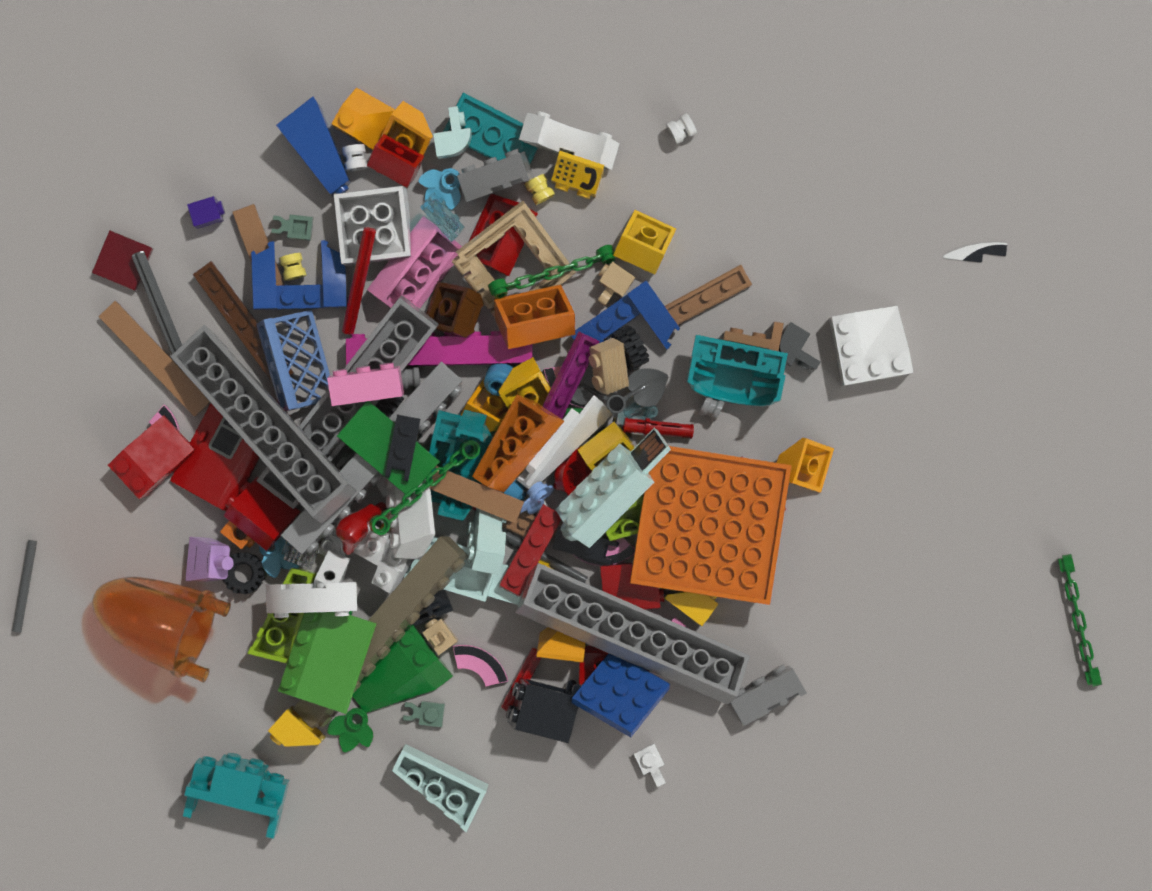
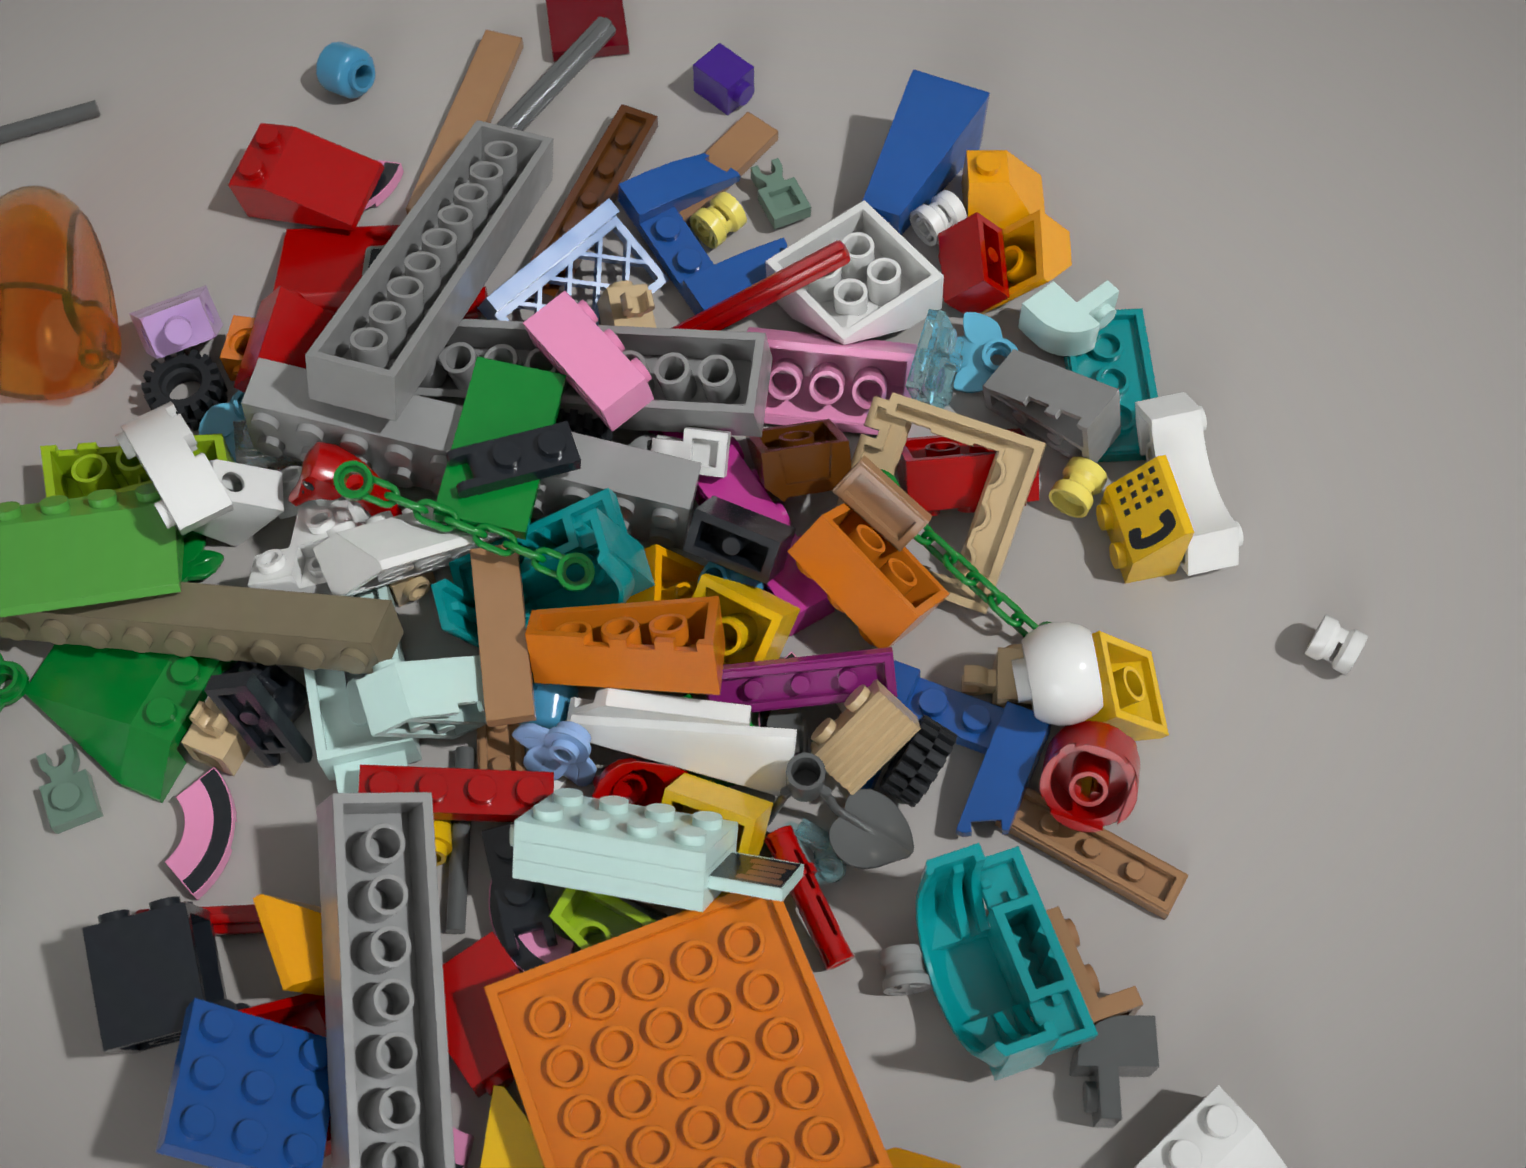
camera: 55 degrees right, 25 degrees down
(86, 403) = (345, 70): none -> dark azure head
(326, 344) = (627, 305): none -> tan brick
(429, 356) = (698, 445): none -> white plate
(450, 617) = (257, 717): none -> black hinge
(488, 365) = (739, 539): none -> black brick
(509, 293) = (882, 503): none -> medium nougat tile
(634, 269) = (1059, 674): none -> white wheel
(679, 280) = (1090, 776): none -> red brick

